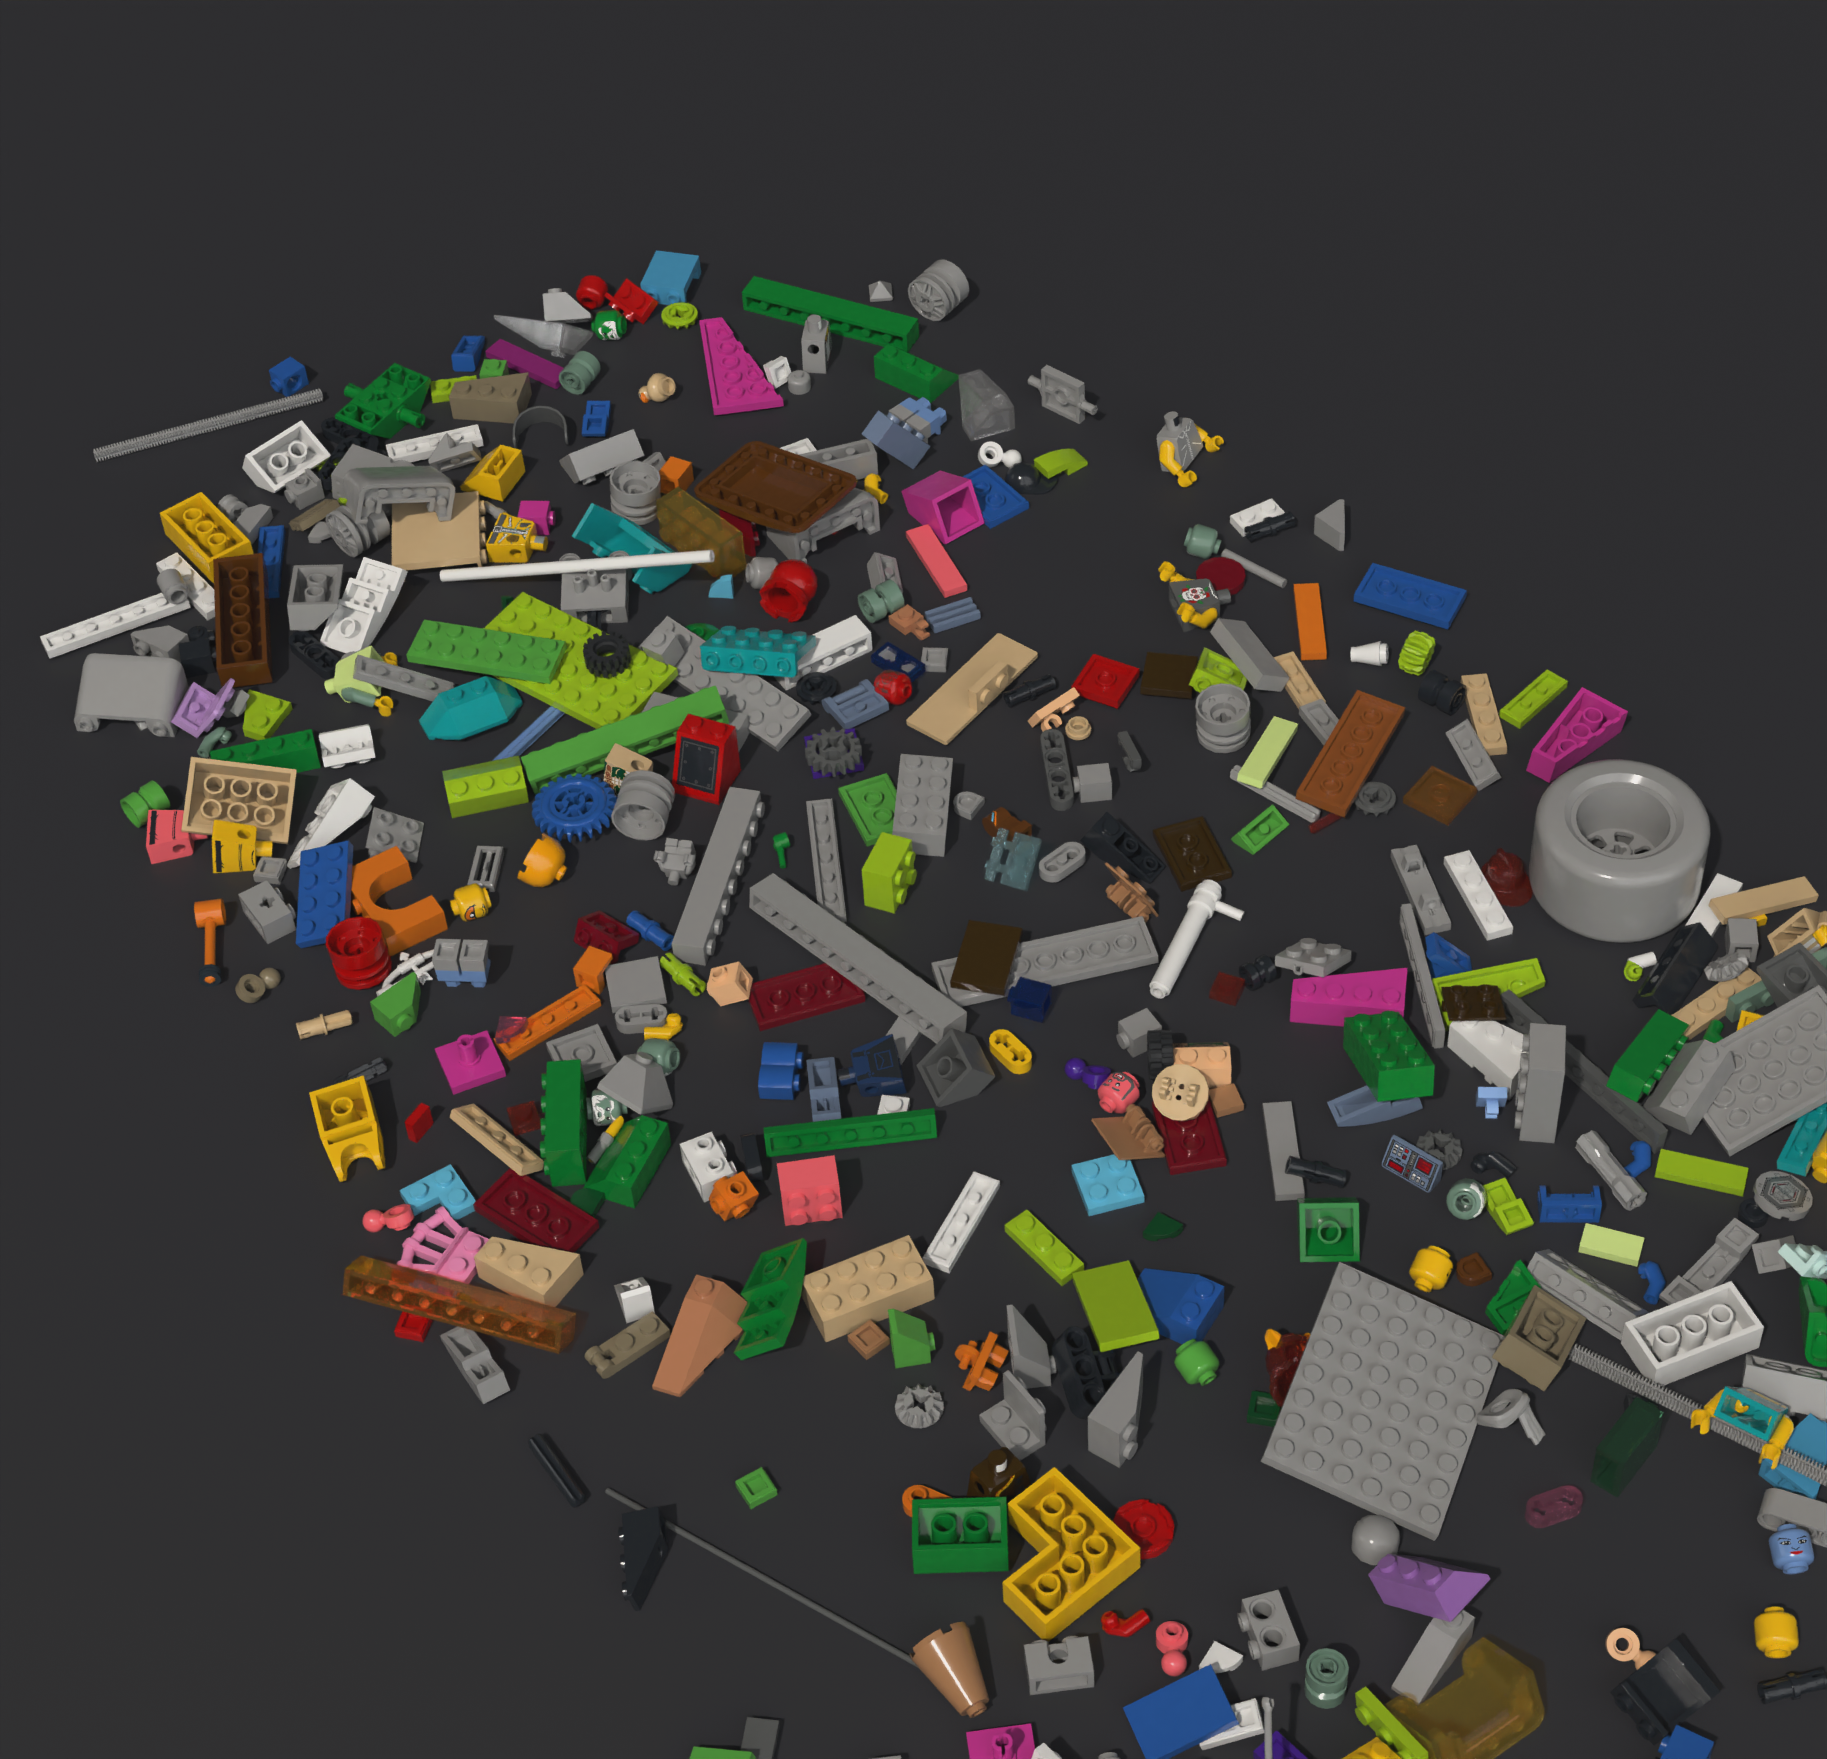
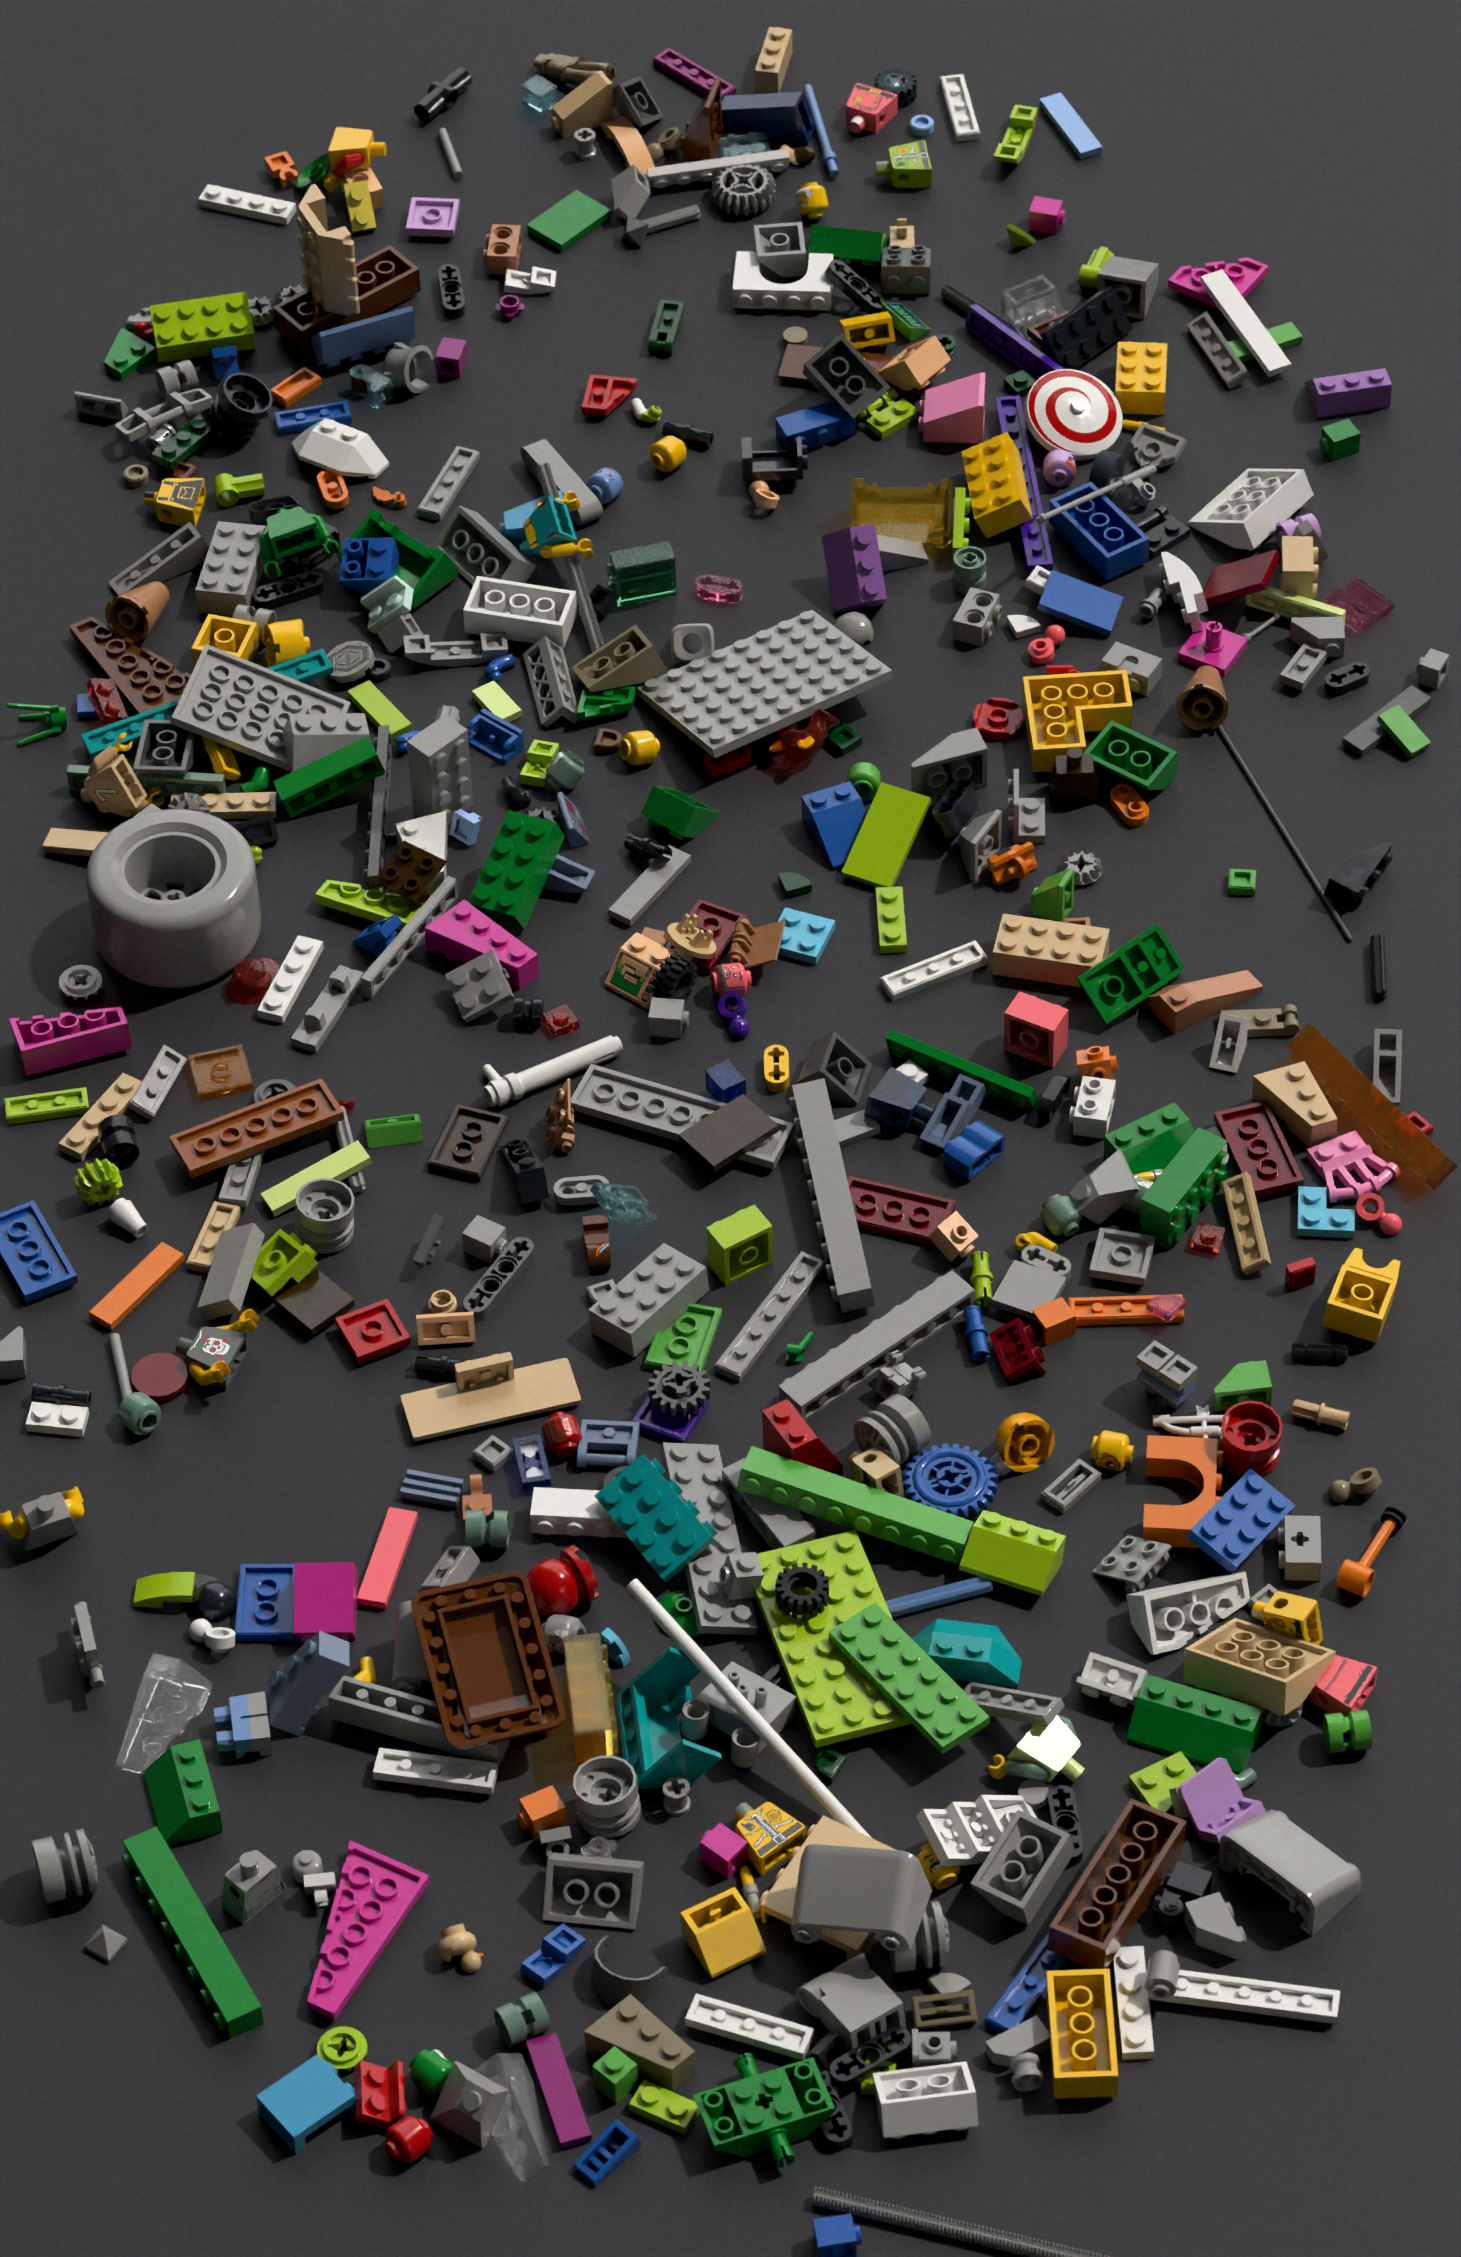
camera: 145 degrees left, 0 degrees up
(449, 456) = (751, 1981): light grey slope -> none
(470, 1062) = (1217, 1311): dark pink tile -> none

